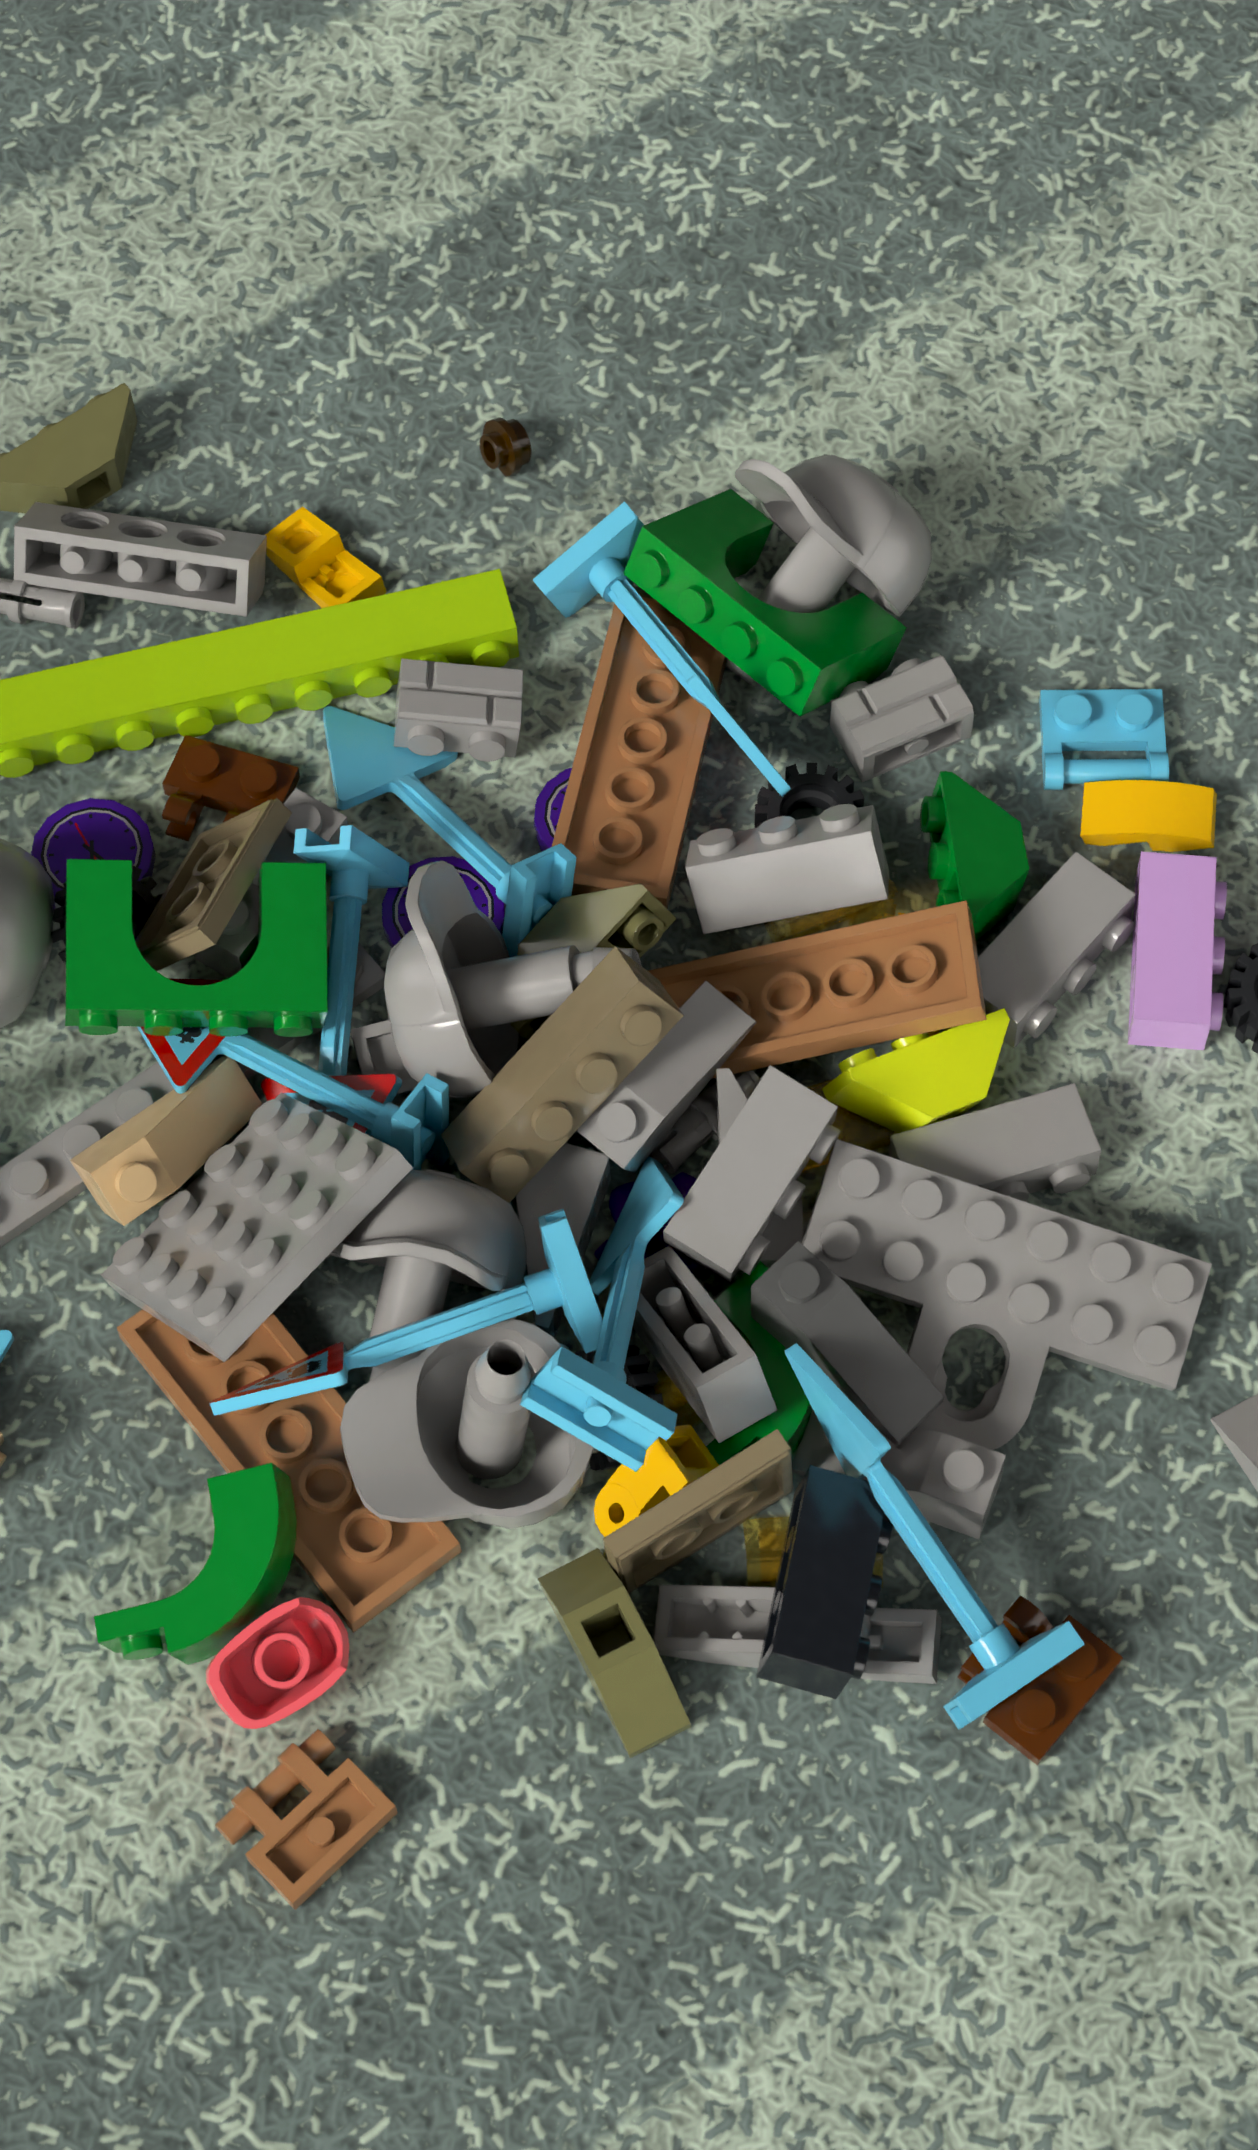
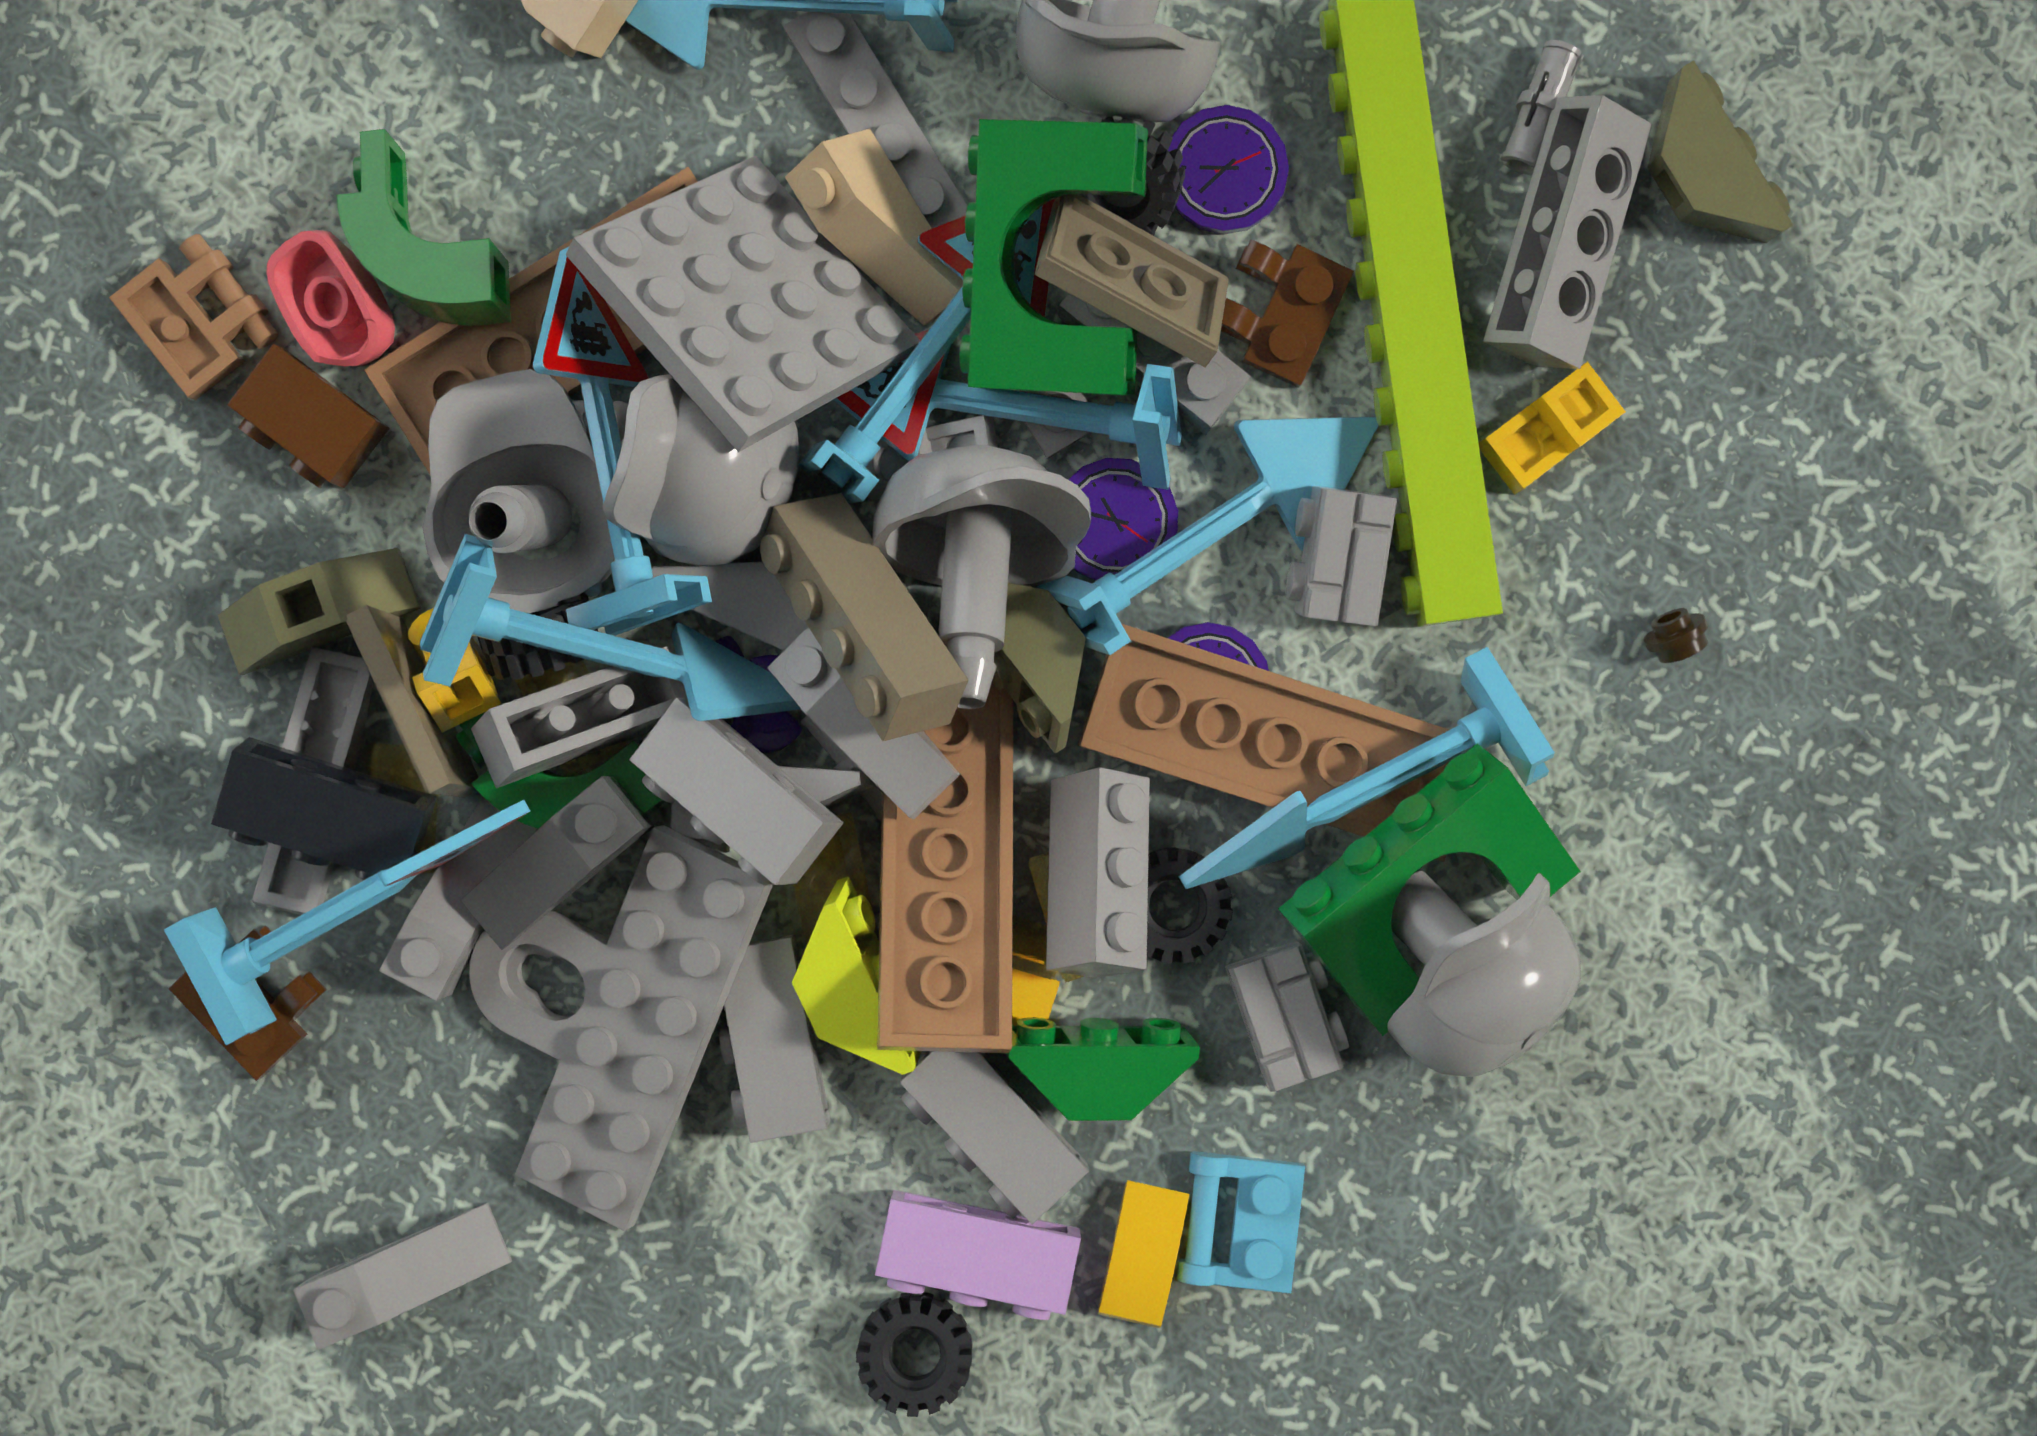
camera: 95 degrees right, 25 degrees up
(408, 1678) = (307, 417): none -> reddish brown brick

